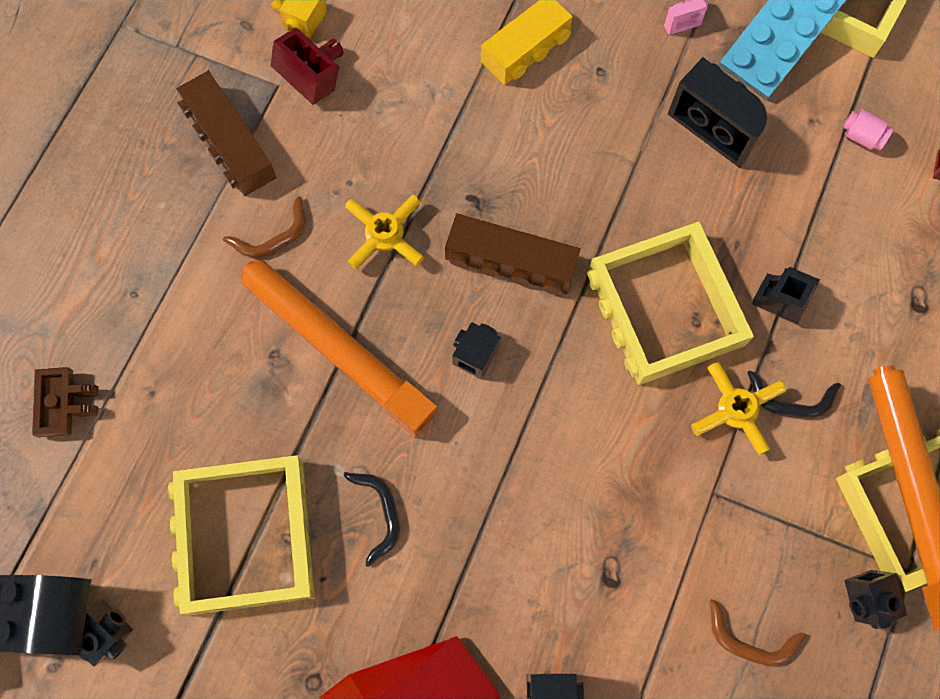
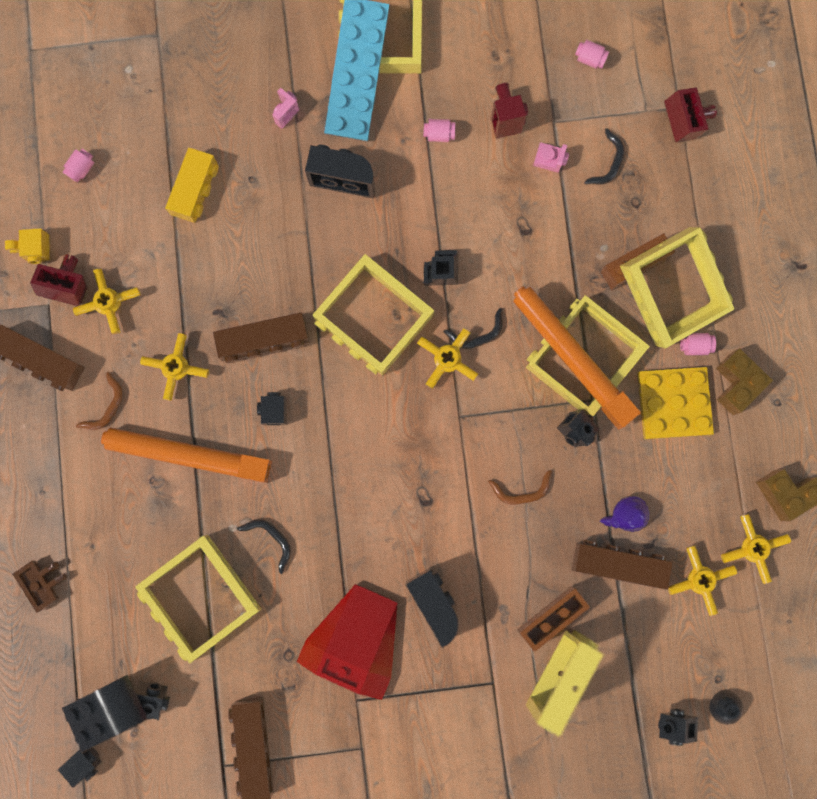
camera: 25 degrees left, 10 degrees up
(348, 115) = (100, 299): none -> yellow bar

